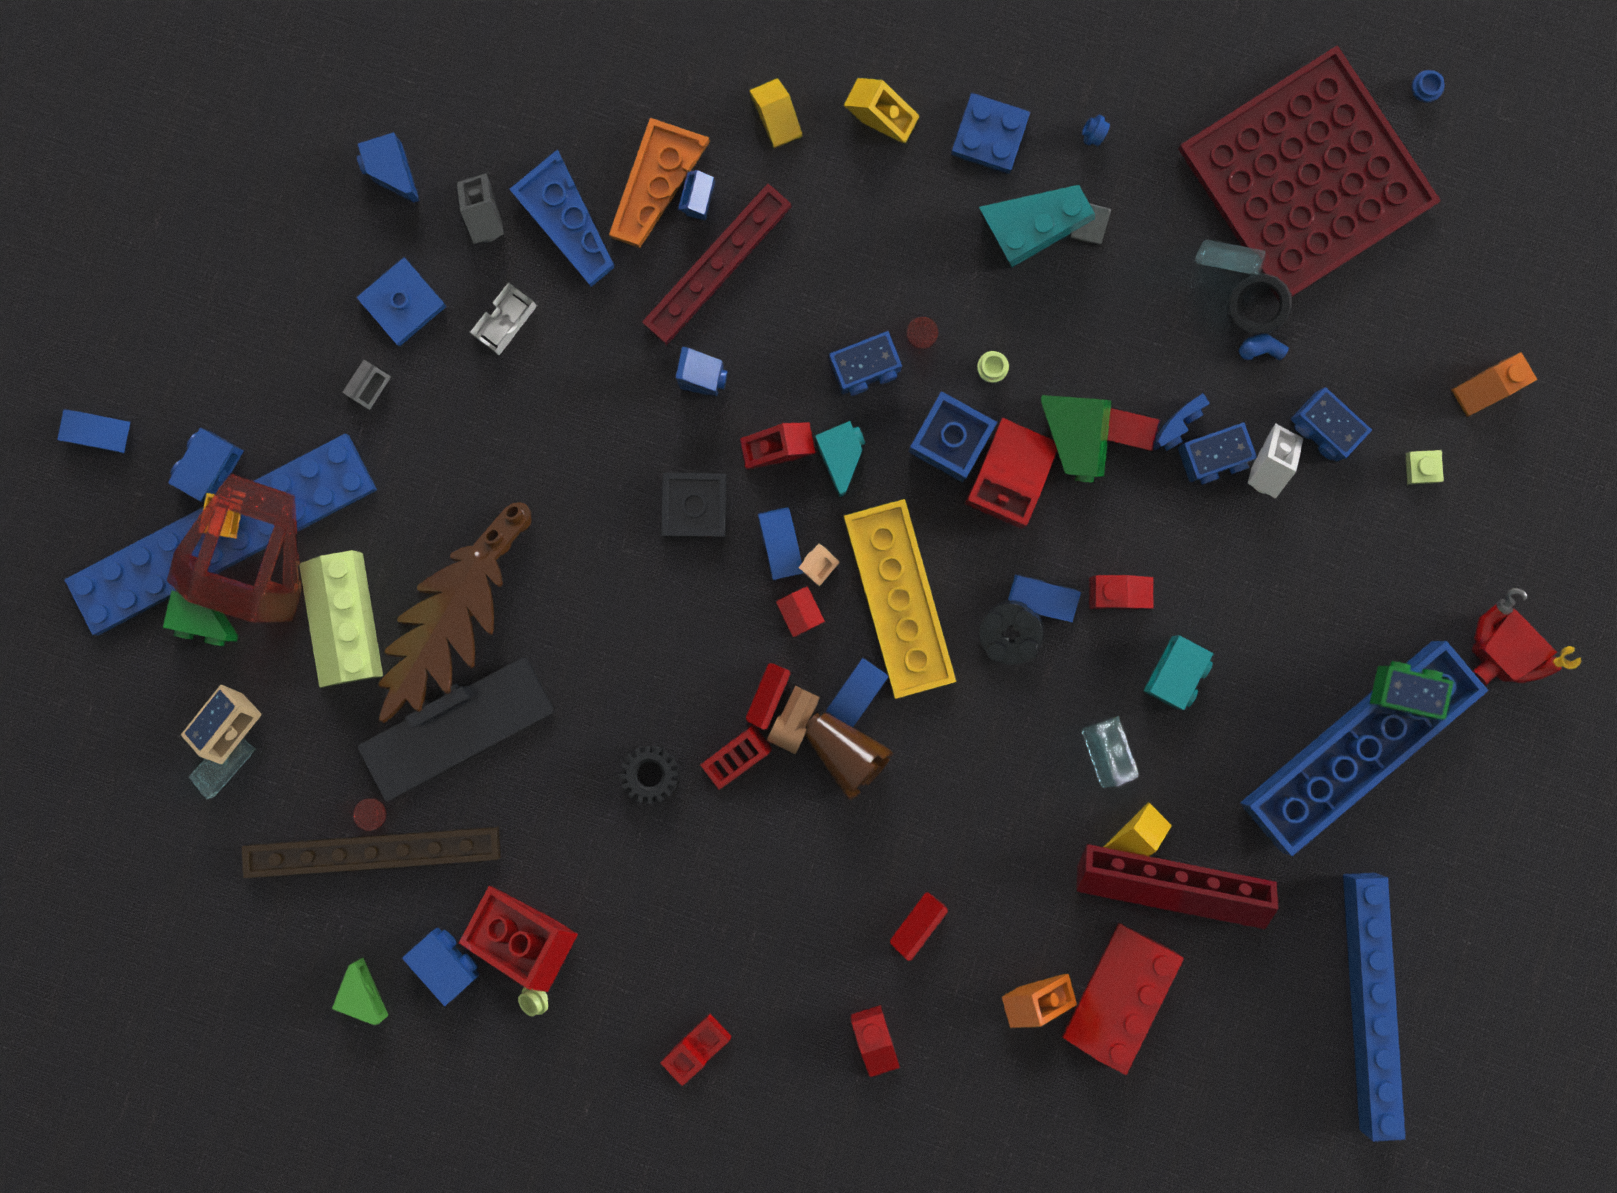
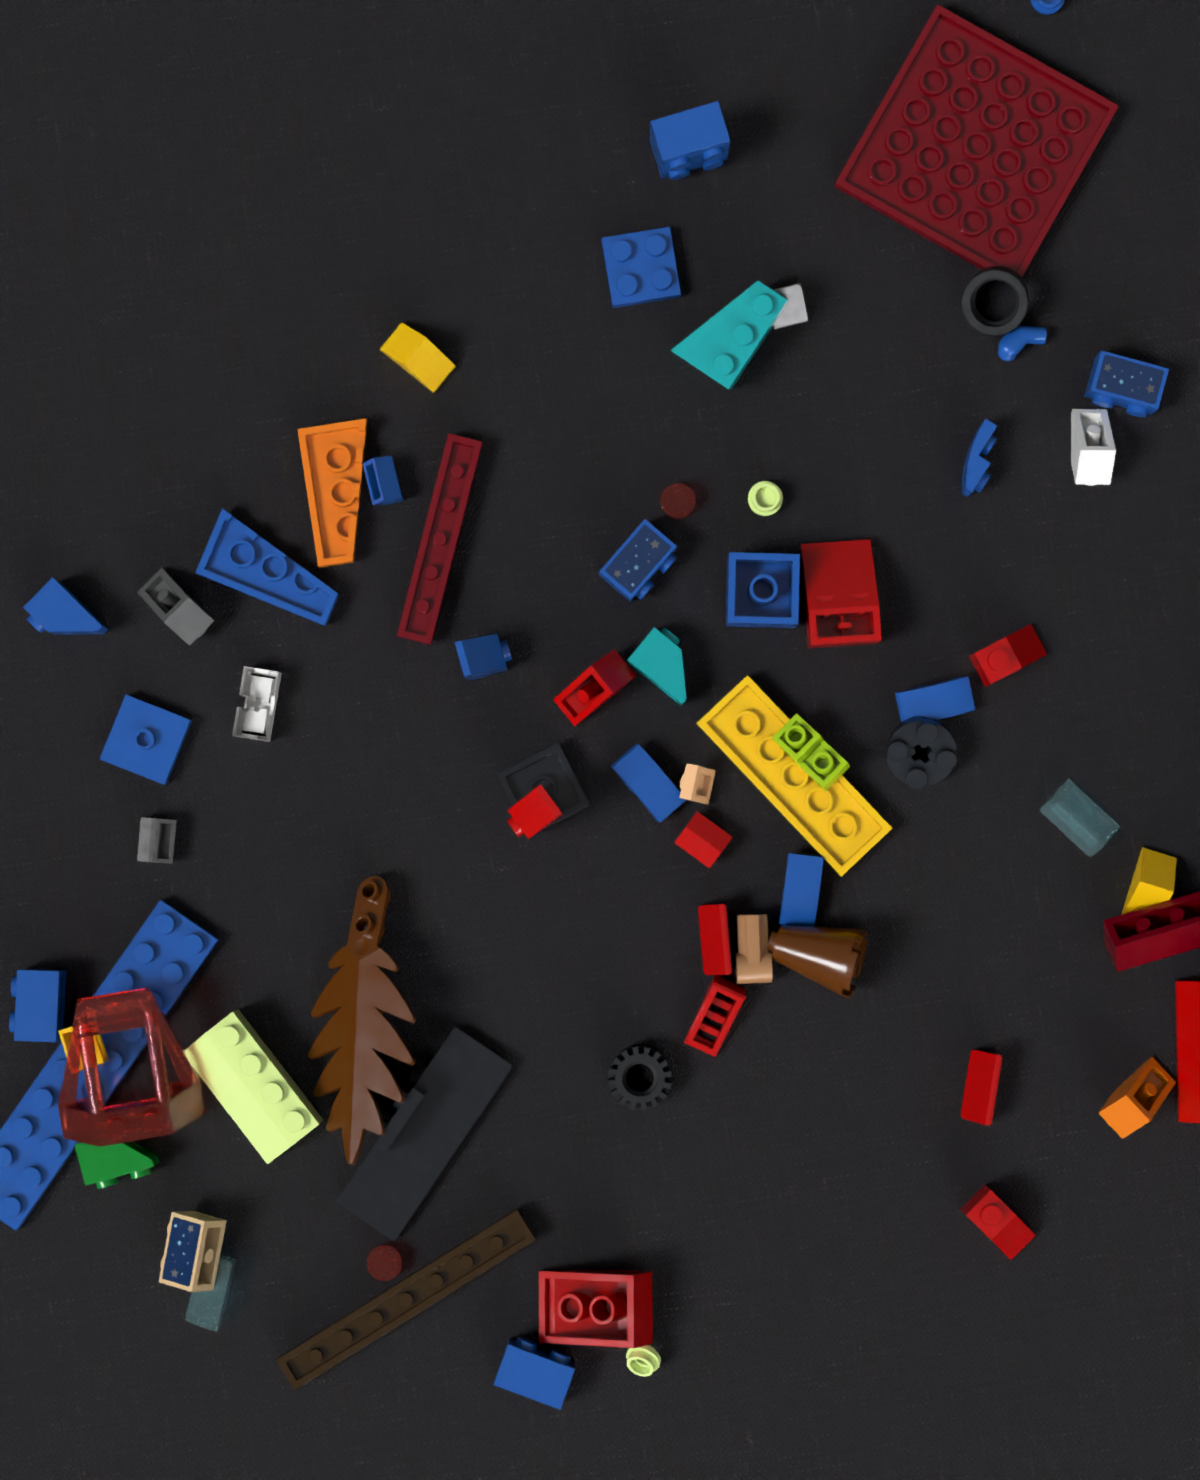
camera: 25 degrees left, 0 degrees up
(359, 995) = (469, 1445): bright green slope -> none
(675, 517) = (533, 813): none -> red slope
(696, 1049) = (827, 1323): red slope -> none
(881, 108) = (521, 300): yellow slope -> none
(923, 586) = (811, 752): none -> lime slope
(1079, 433) = (885, 521): green slope -> none
(1082, 49) = (689, 141): none -> blue brick
(1095, 130) = (743, 212): blue plate -> none
(1132, 429) = (924, 491): red slope -> none
(1179, 673) = (1105, 705): teal brick -> none
(1216, 453) = (1030, 469): brick -> none
(1231, 257) = (942, 269): clear light blue slope -> none

